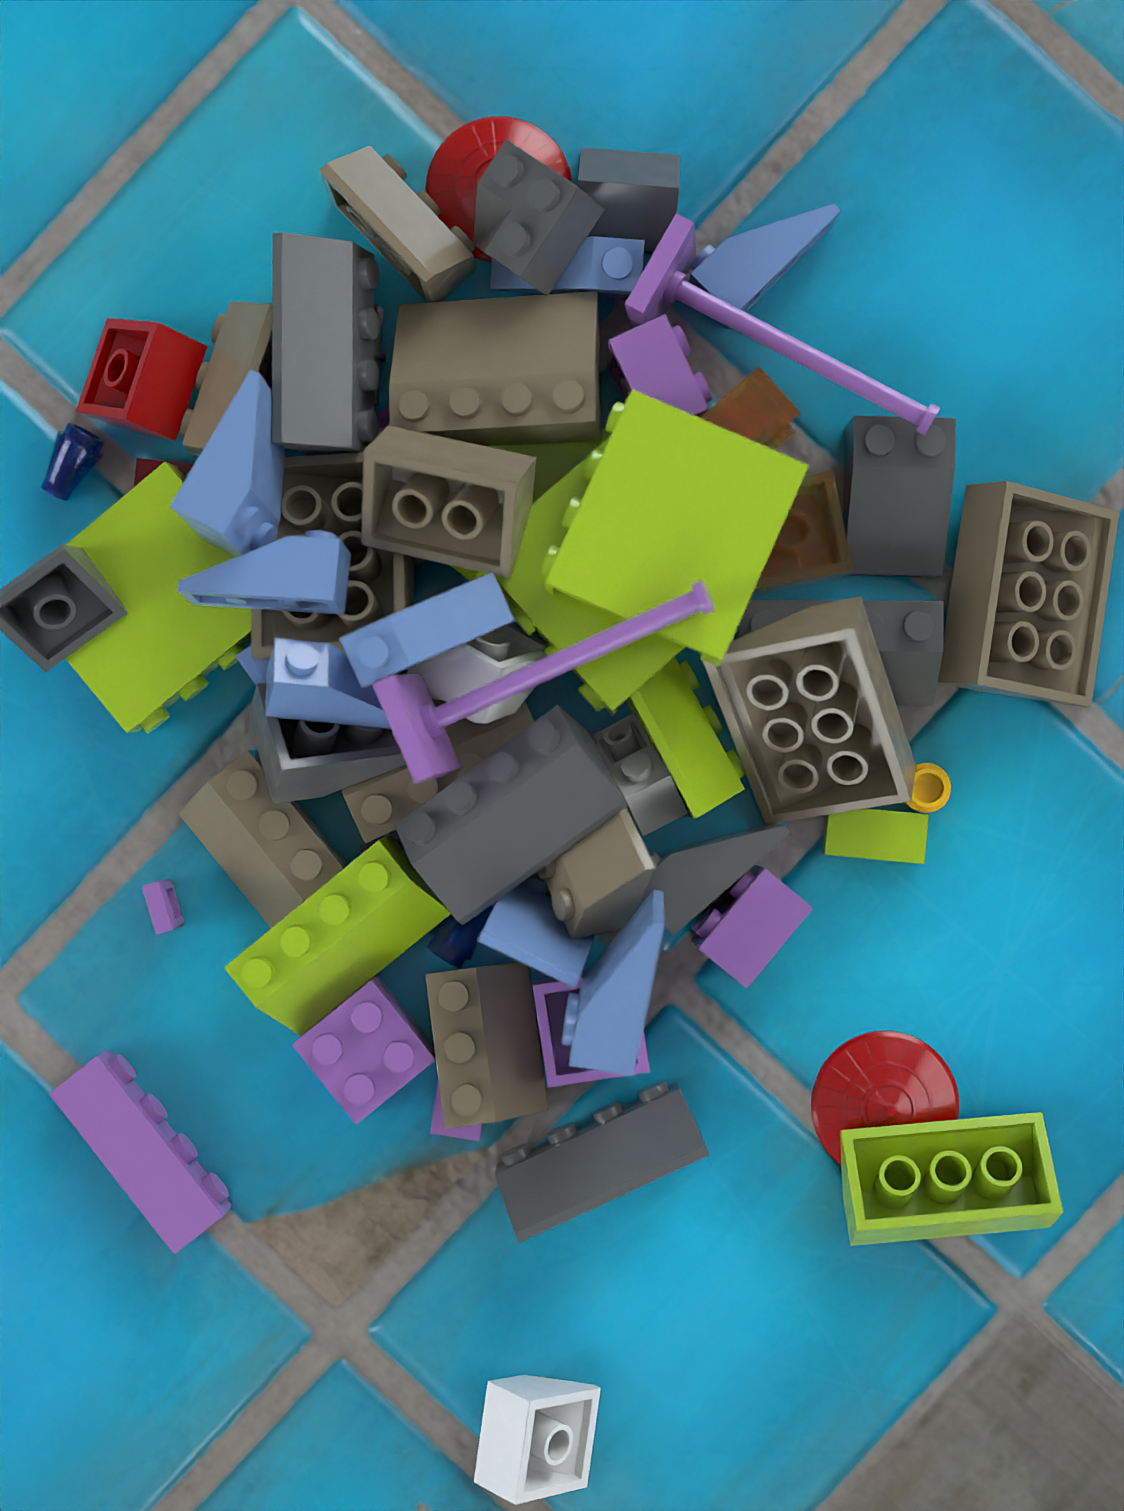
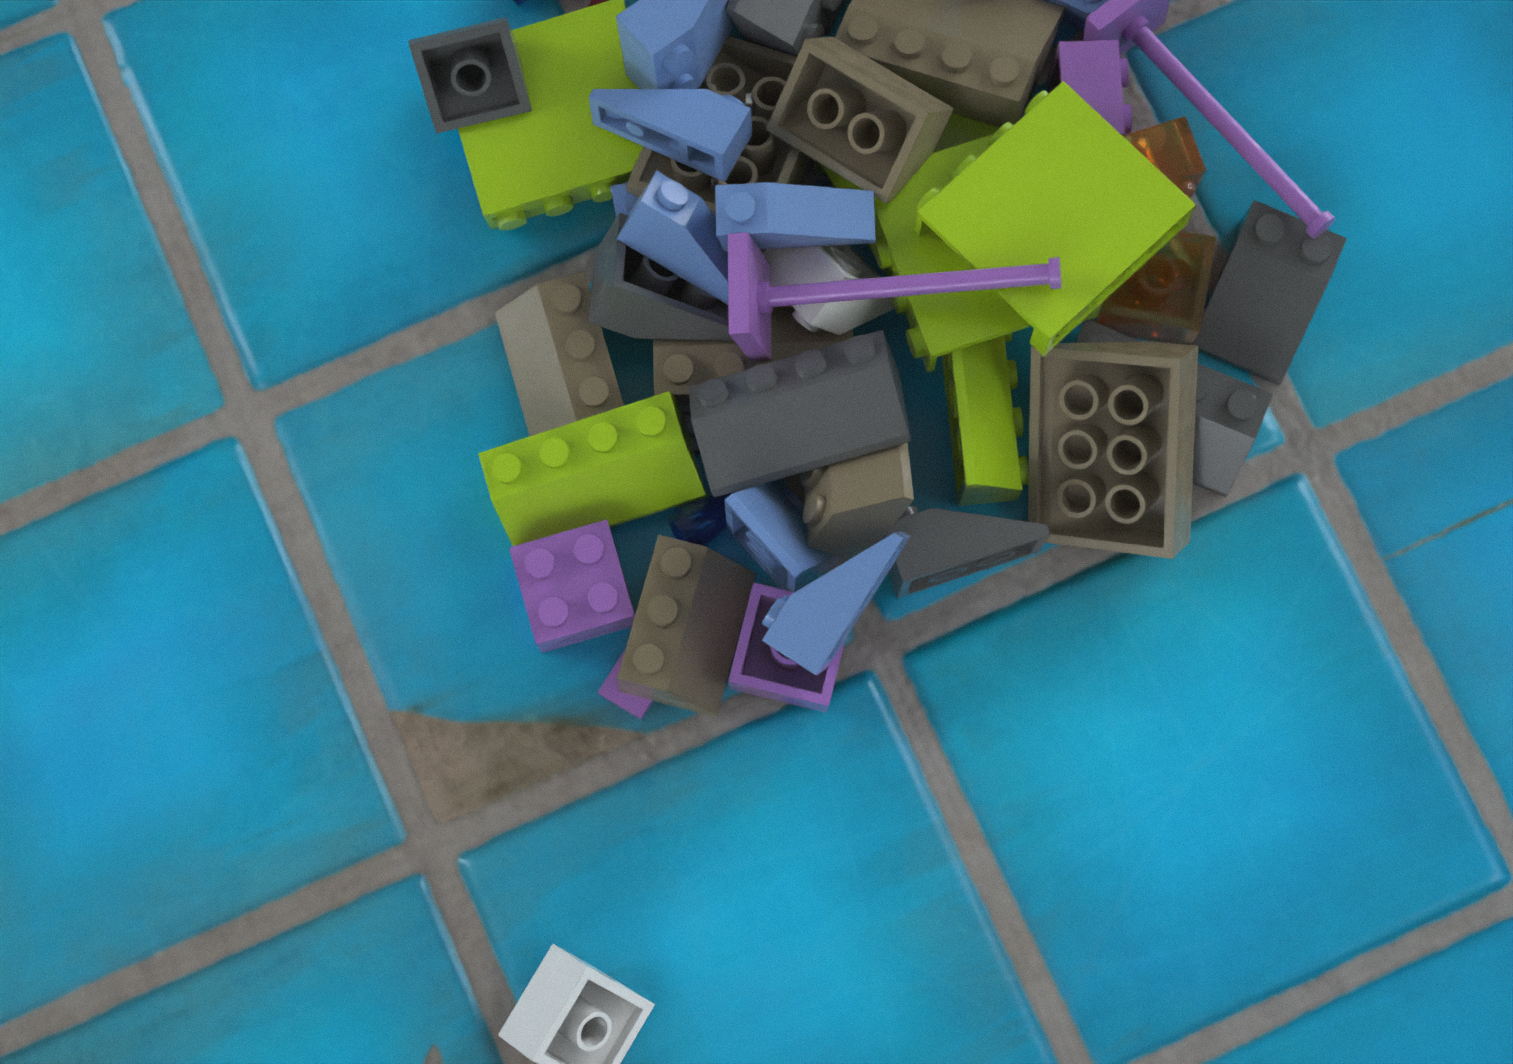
camera: 25 degrees right, 10 degrees down
(142, 1149) = (327, 594): medium lavender brick -> none
(163, 906) = (445, 384): medium lavender tile -> none
(598, 1159) = (747, 774): dark grey slope -> none
(640, 775) = (933, 444): white slope -> none
(749, 924) = (977, 612): medium lavender brick -> none
(755, 260) = (1224, 39): medium blue slope -> none
(877, 835) = (1127, 590): lime tile -> none
(879, 1083) = (1036, 850): red hat -> none
(930, 788) = (1192, 567): yellow plate -> none
(948, 1179) = (1069, 936): lime slope -> none
(1028, 594) = (1355, 428): dark tan slope -> none

